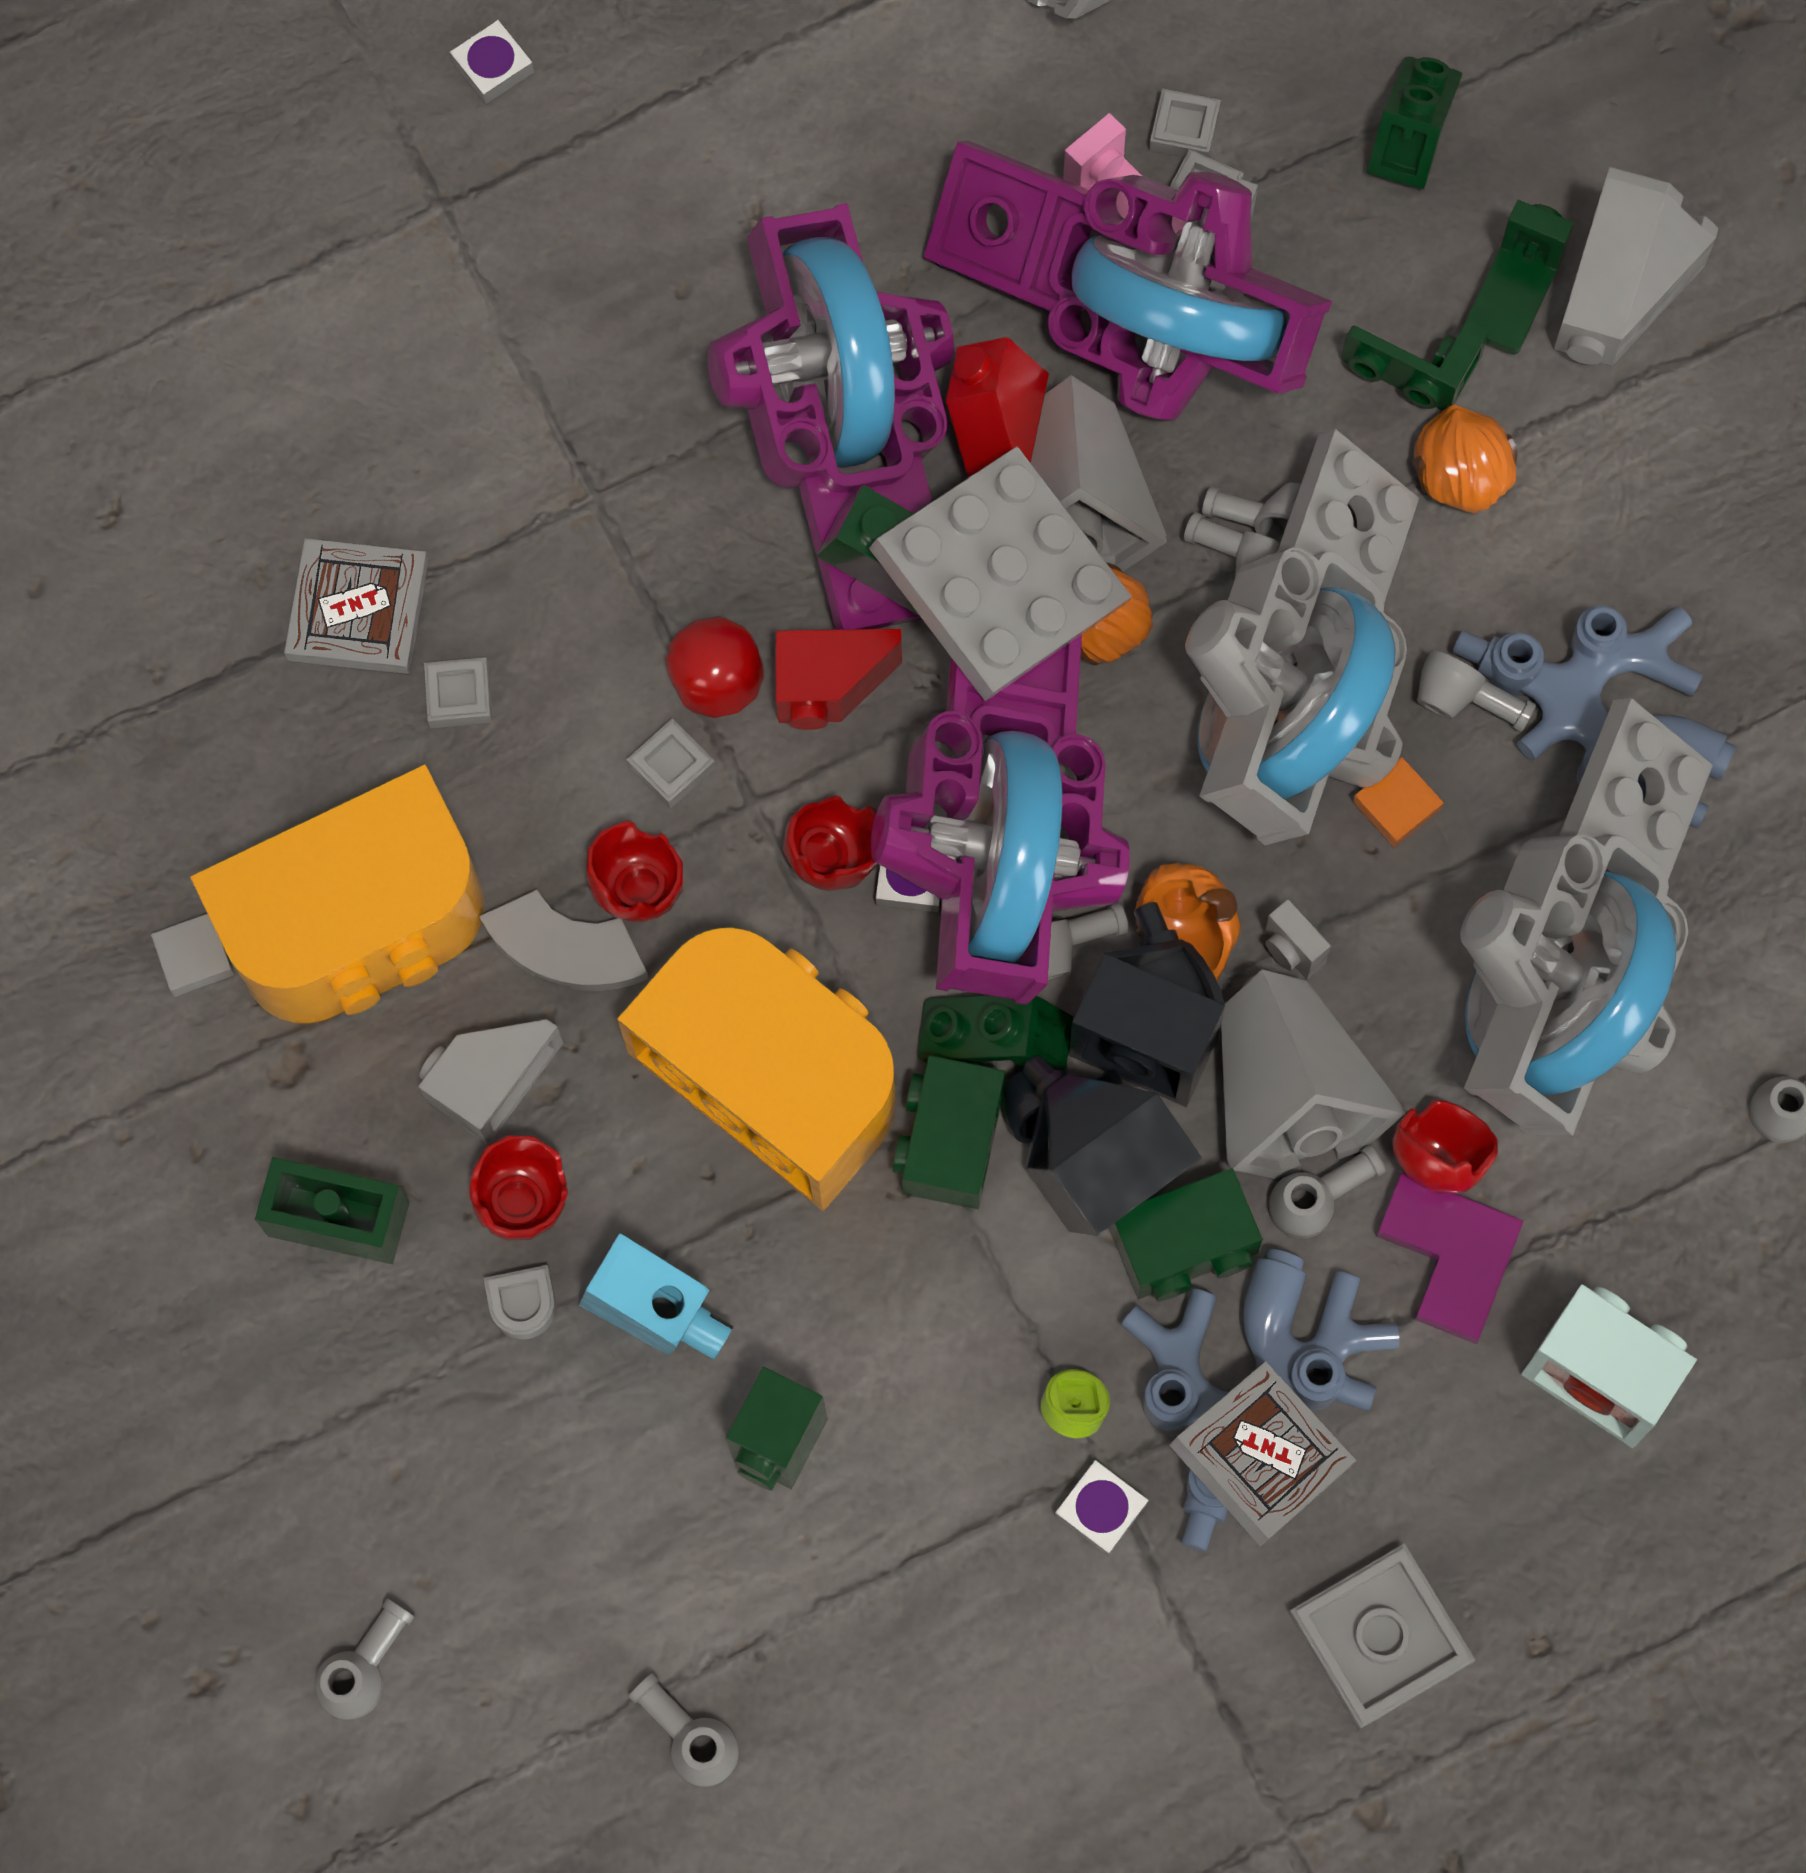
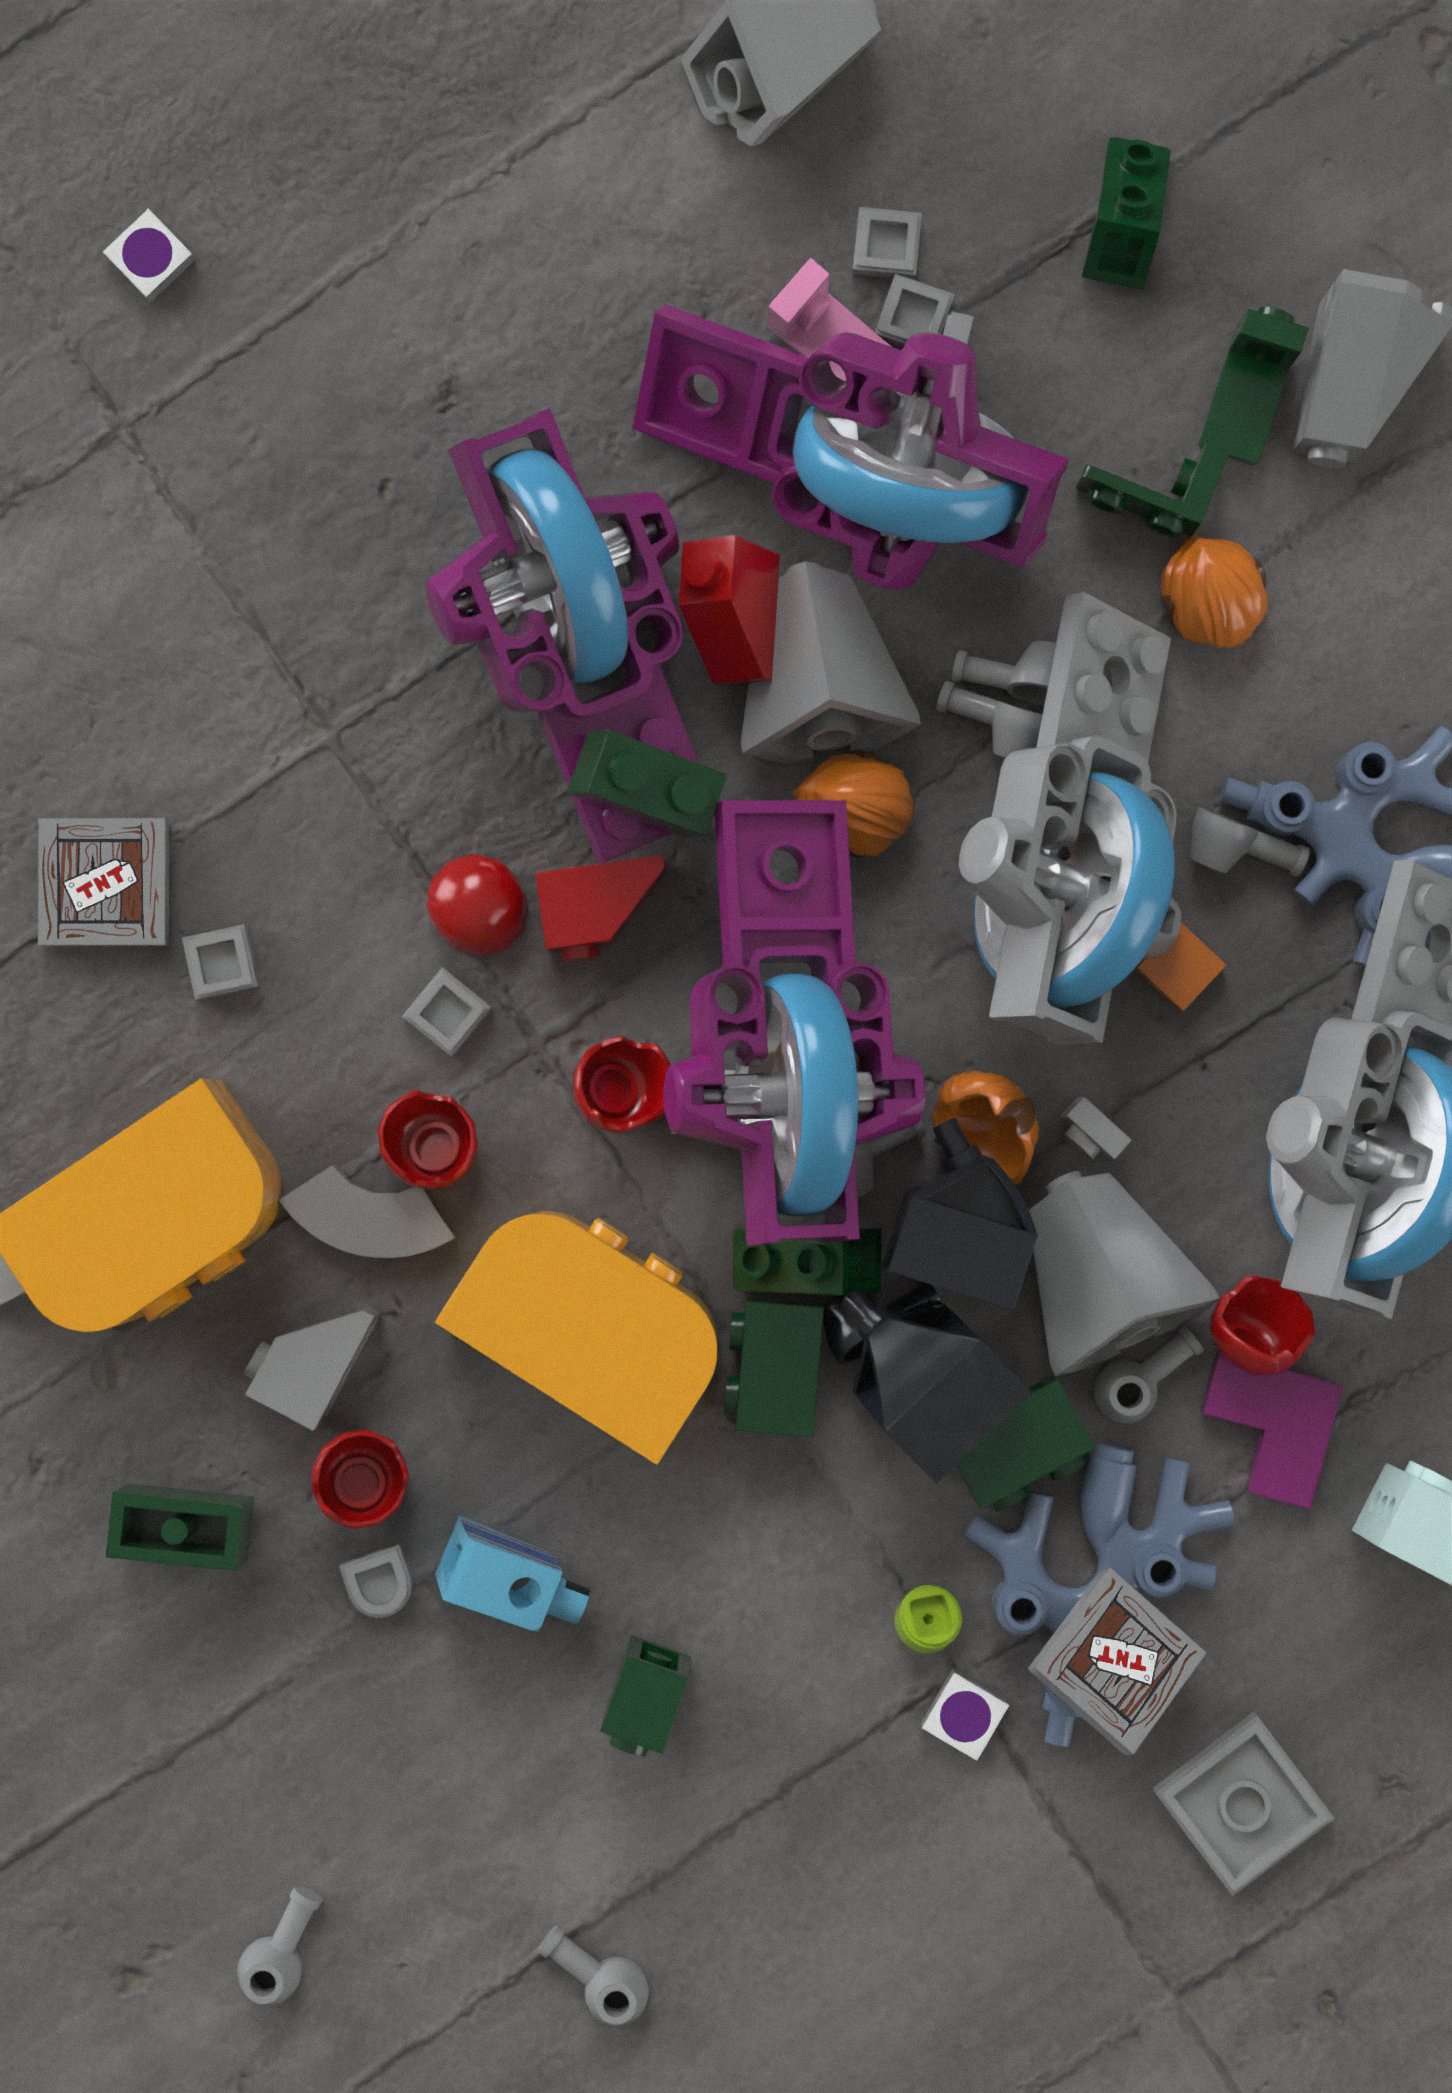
camera: 10 degrees left, 15 degrees up
(1000, 573) = (760, 803): light grey plate -> none

